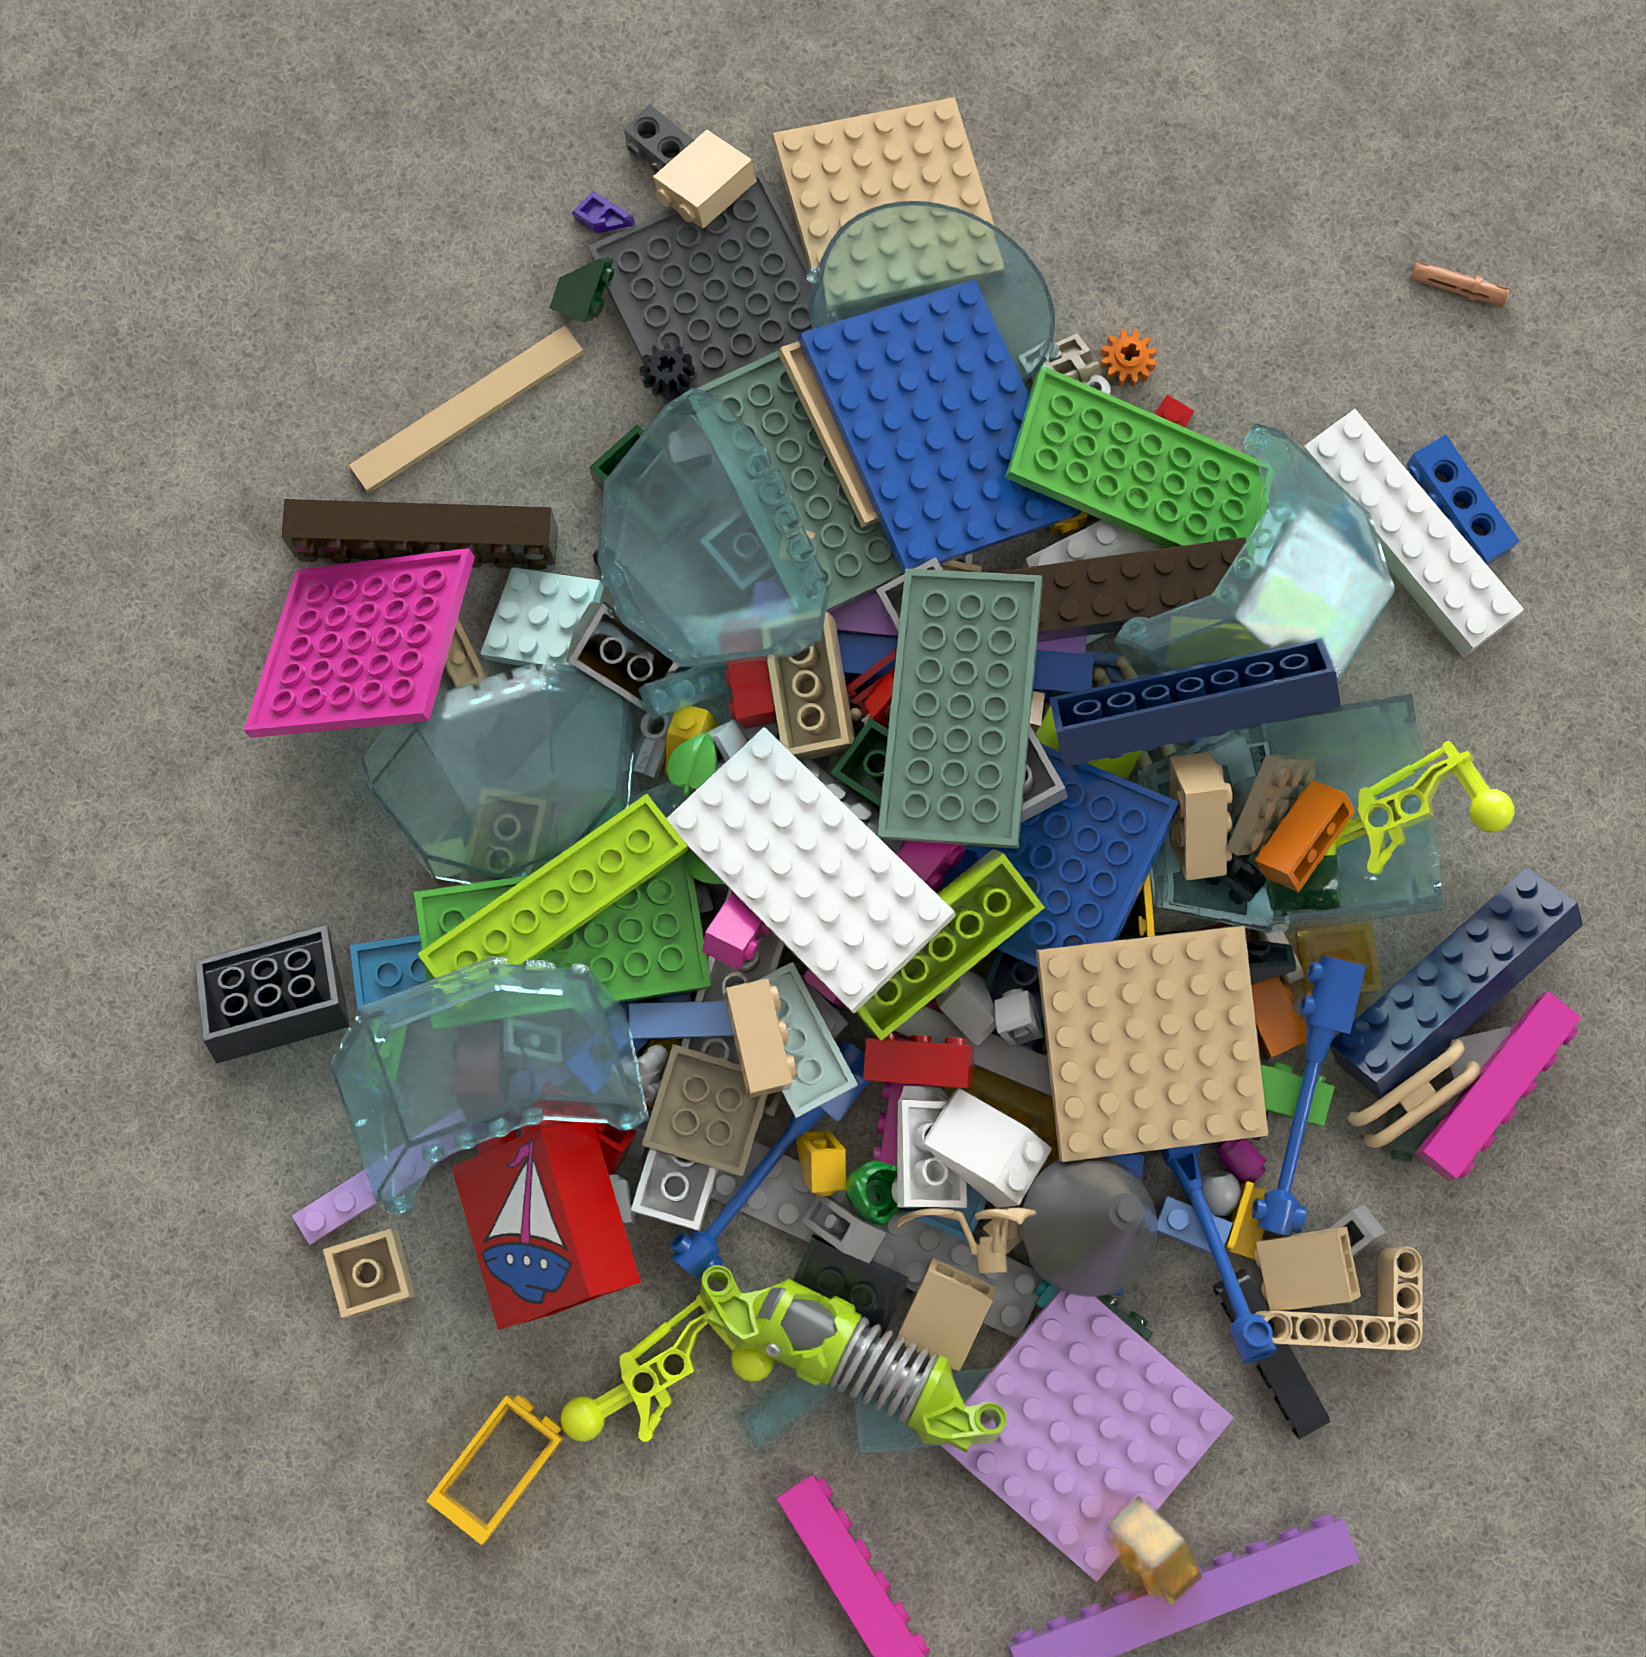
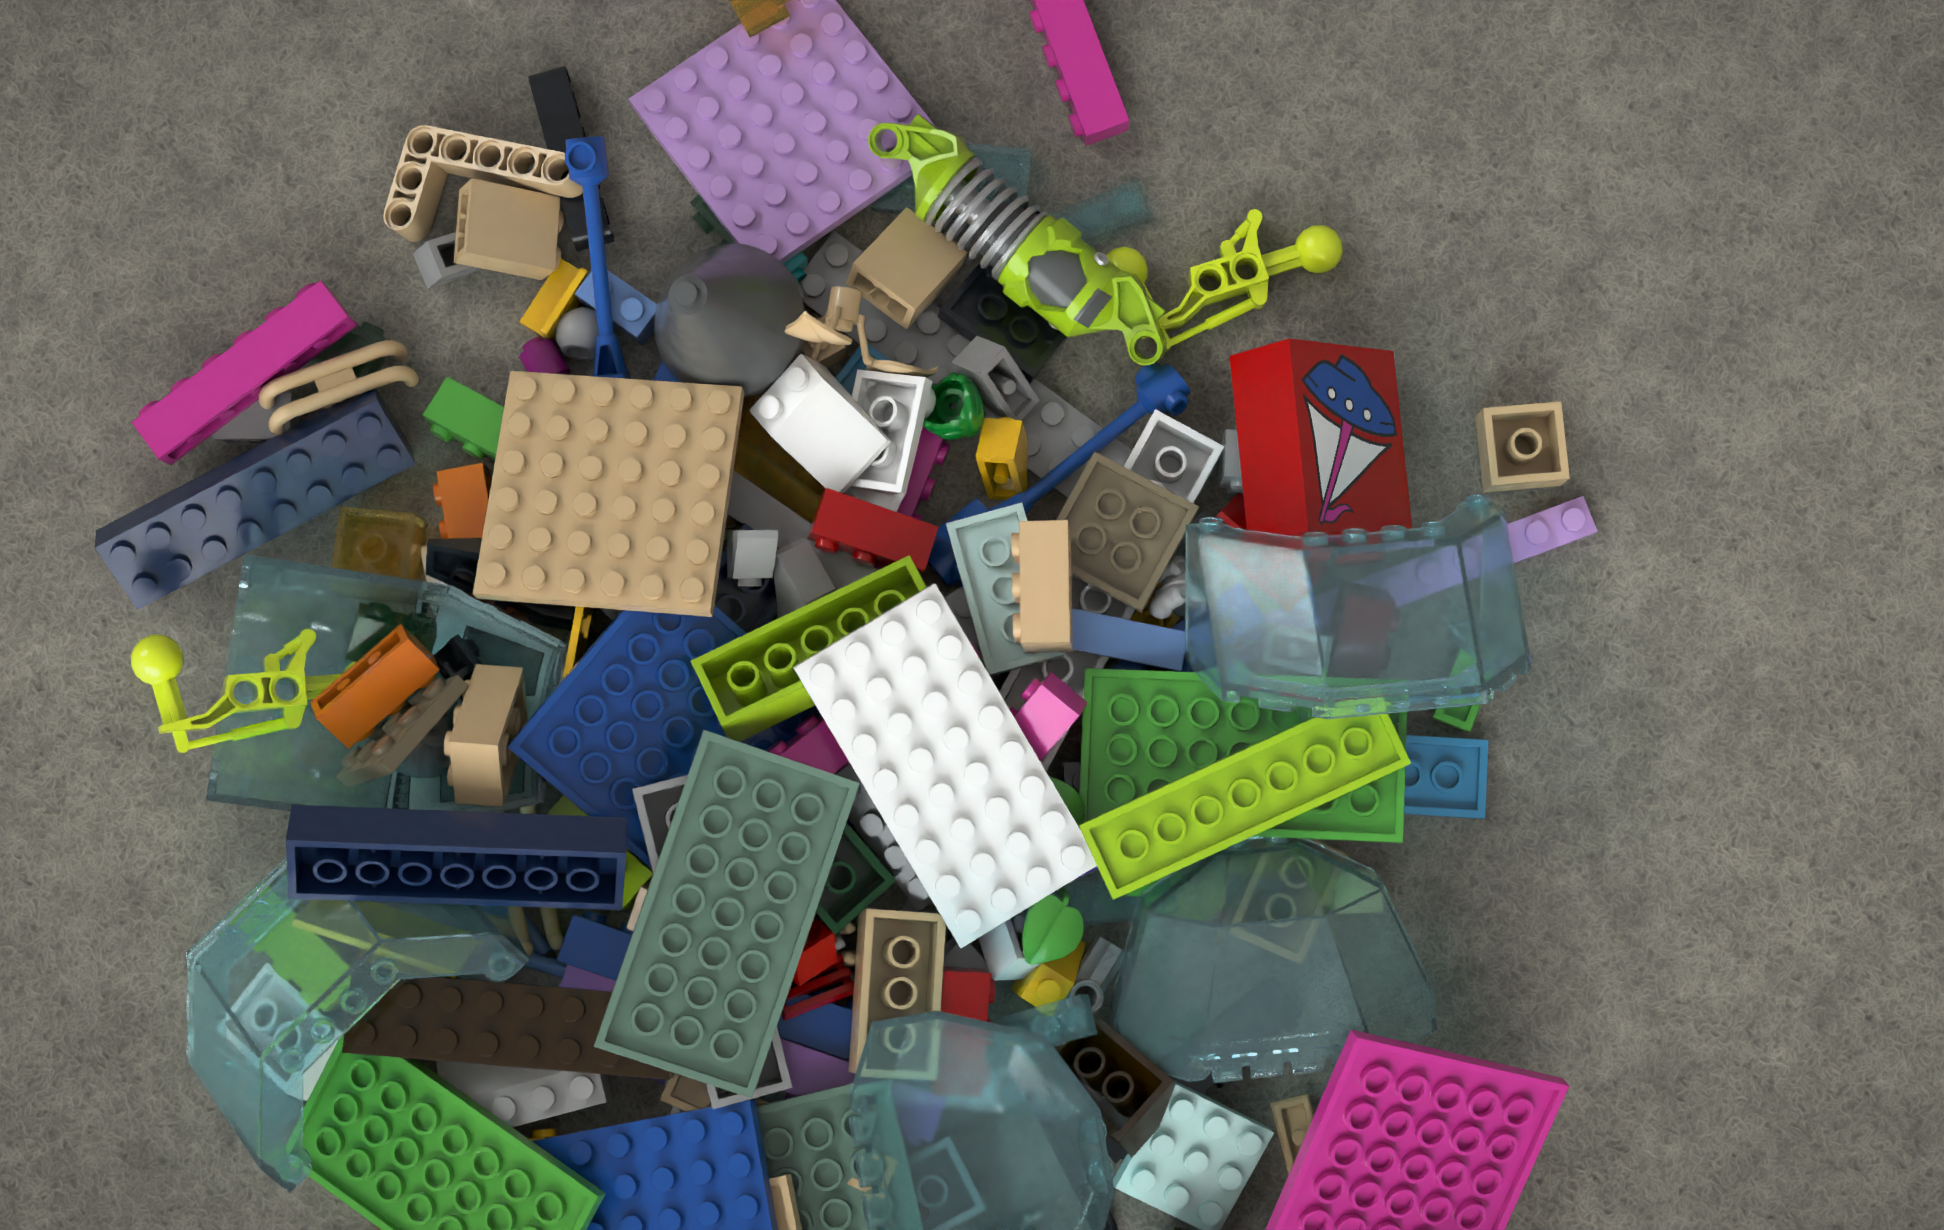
camera: 160 degrees left, 5 degrees up
(270, 994) = (1584, 784): black slope -> none
(457, 1512) = (1466, 179): yellow window -> none
(1326, 1011) = (408, 489): blue bar -> none
(1416, 536) = (145, 1034): white brick -> none
(1462, 485) = (57, 1048): blue brick -> none

